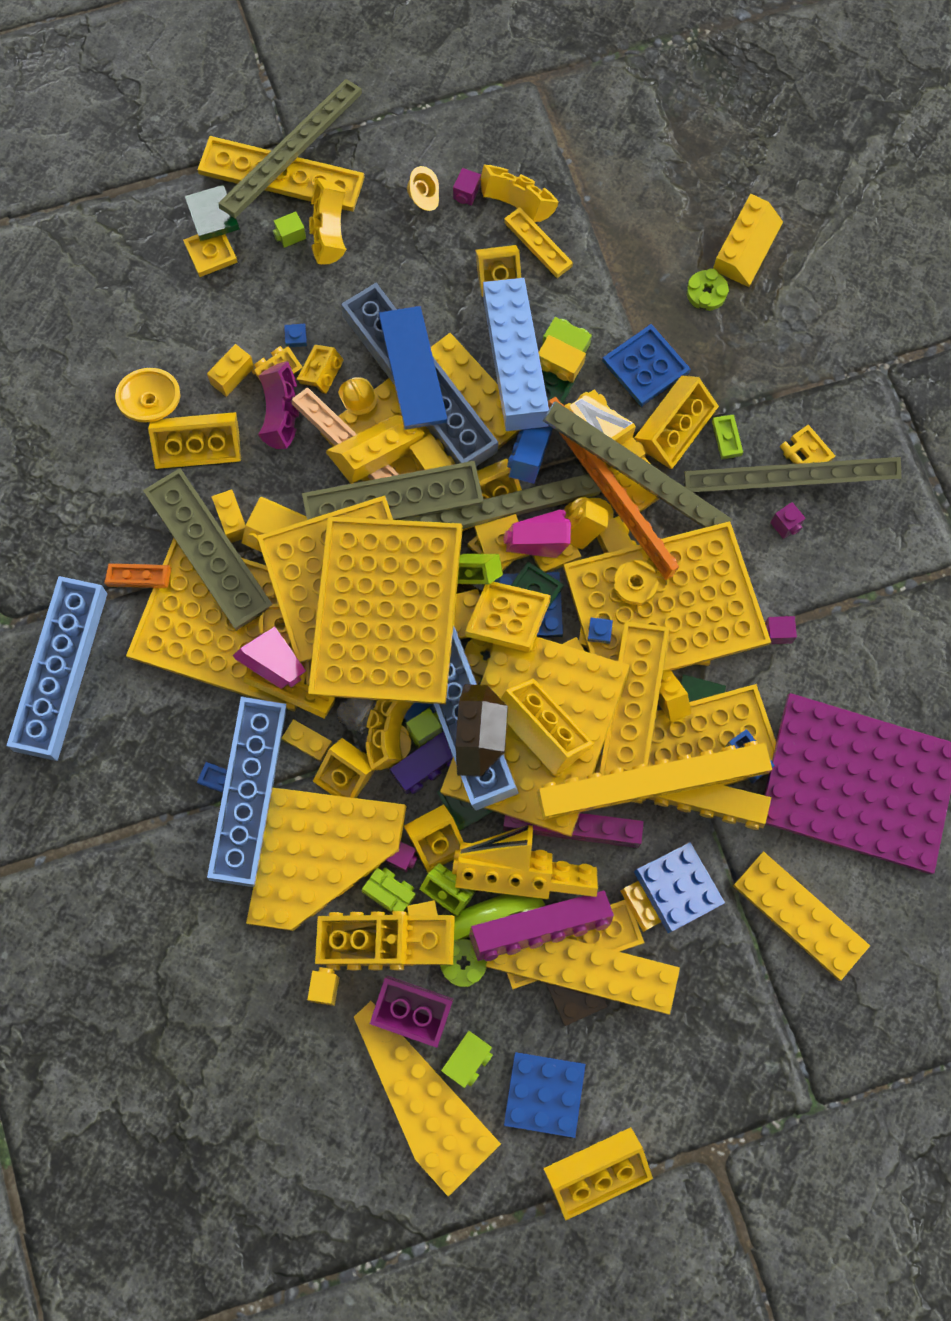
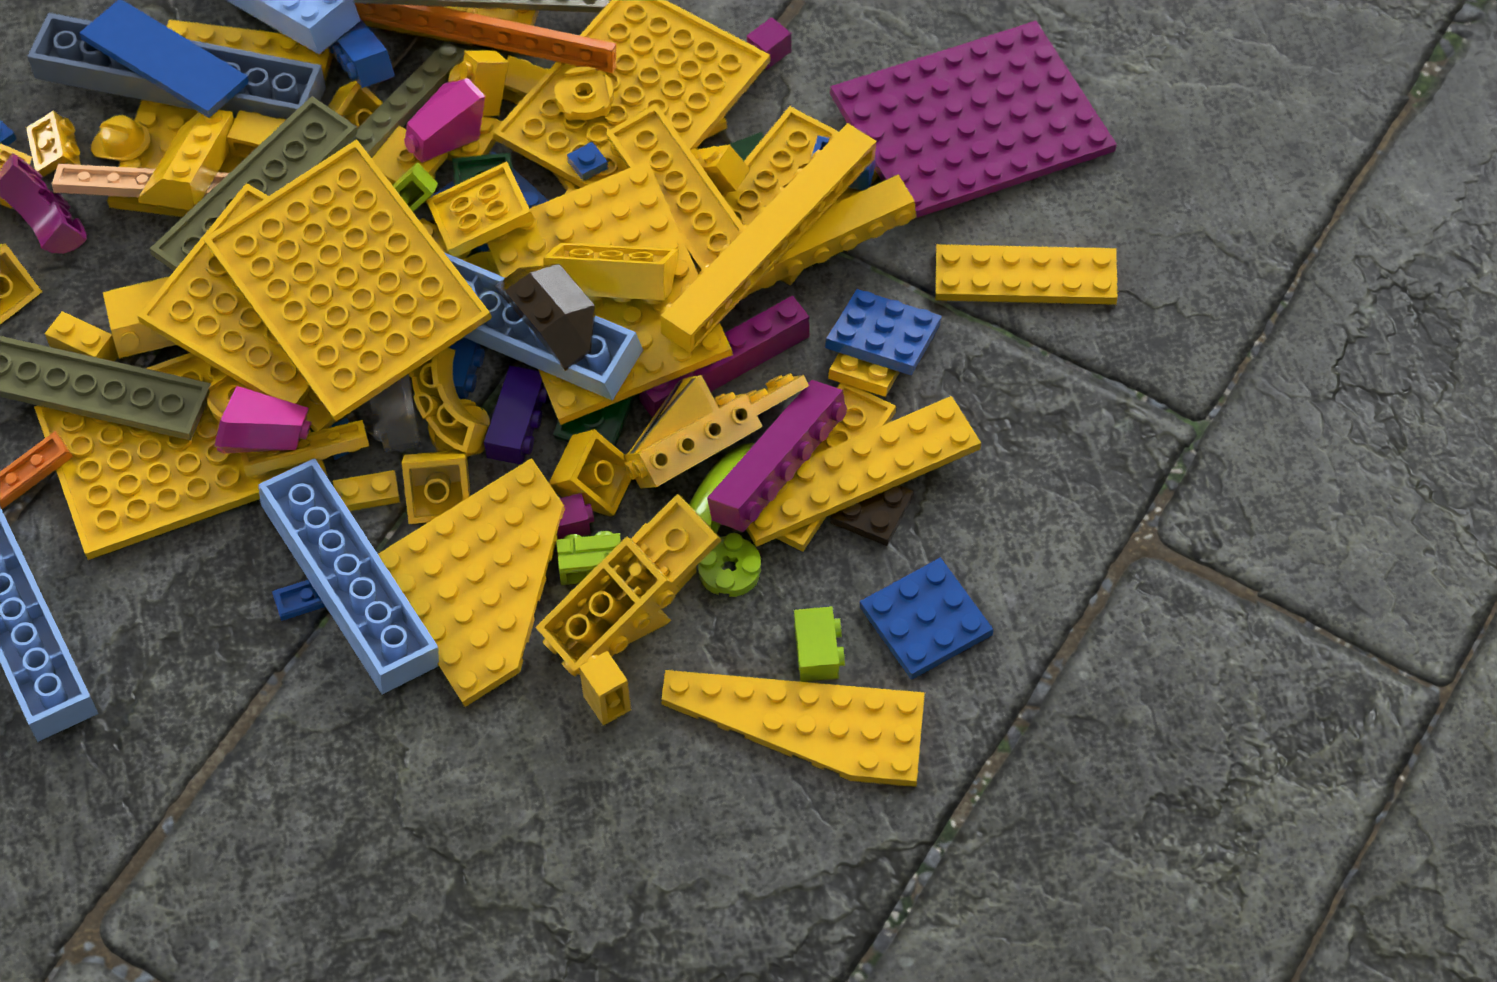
camera: 35 degrees left, 15 degrees down
(411, 1011) = (717, 636): magenta slope -> none
(424, 727) = (485, 377): lime brick -> none
(441, 887) = (643, 504): lime brick -> none
(598, 1173) = (1046, 640): yellow slope -> none

